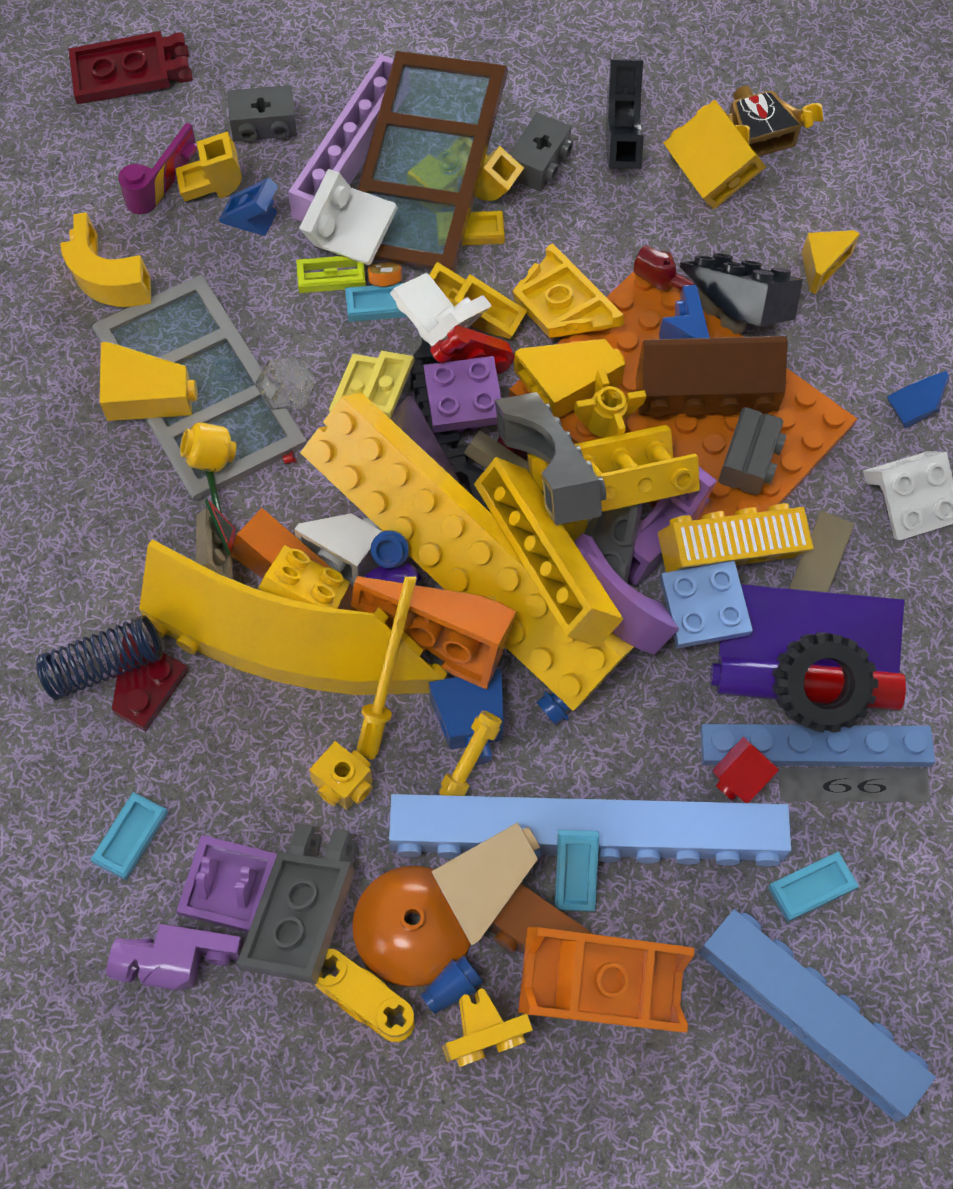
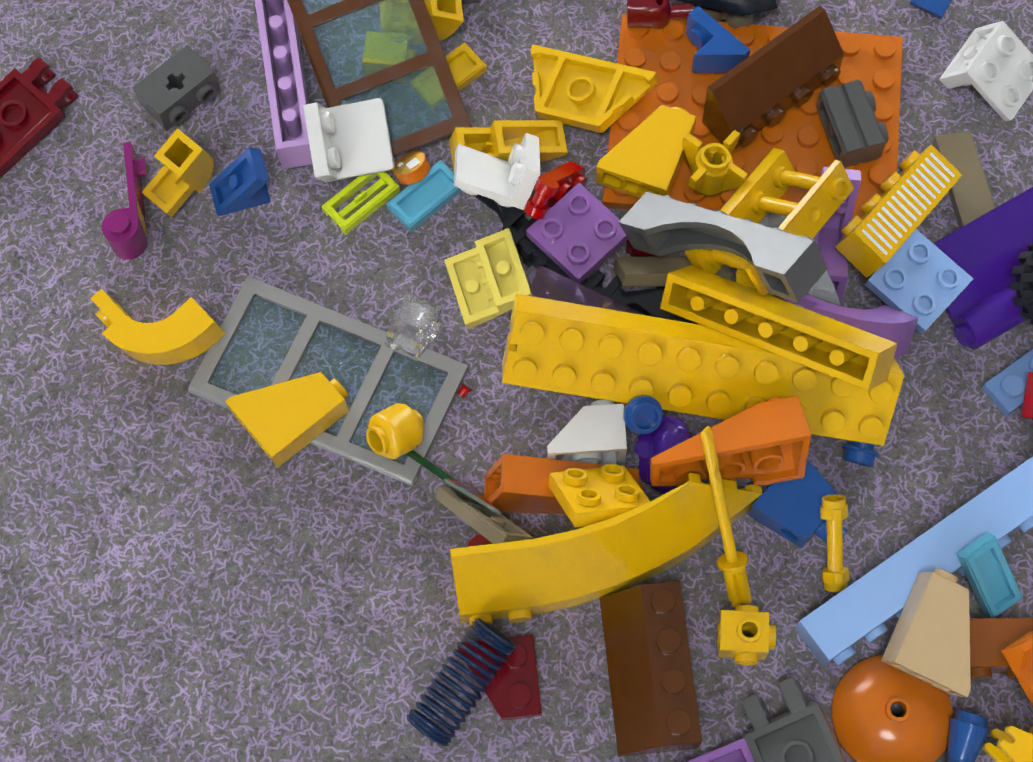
camera: 30 degrees left, 5 degrees up
(253, 754) = (650, 670): none -> reddish brown slope

